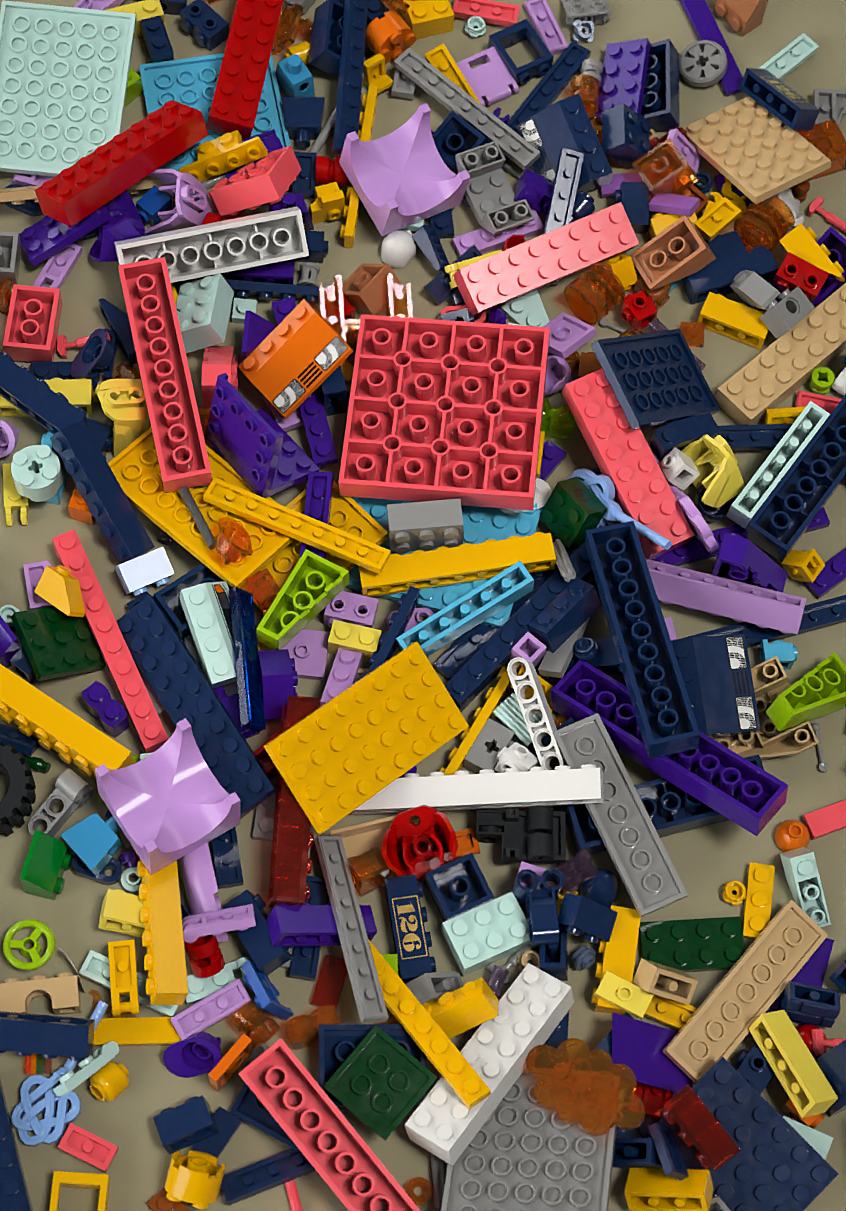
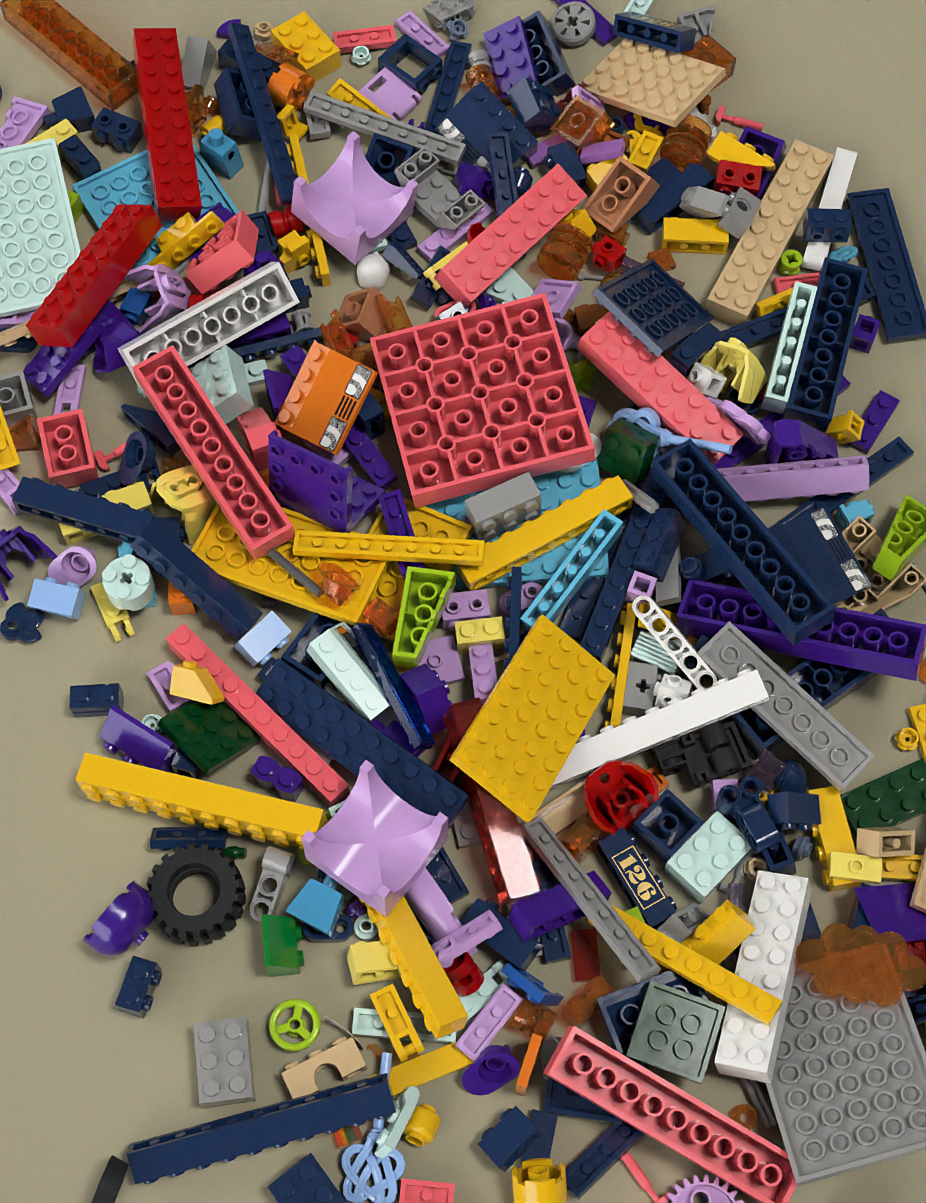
camera: 15 degrees left, 0 degrees up
(303, 118) = (241, 184): dark blue torso -> none

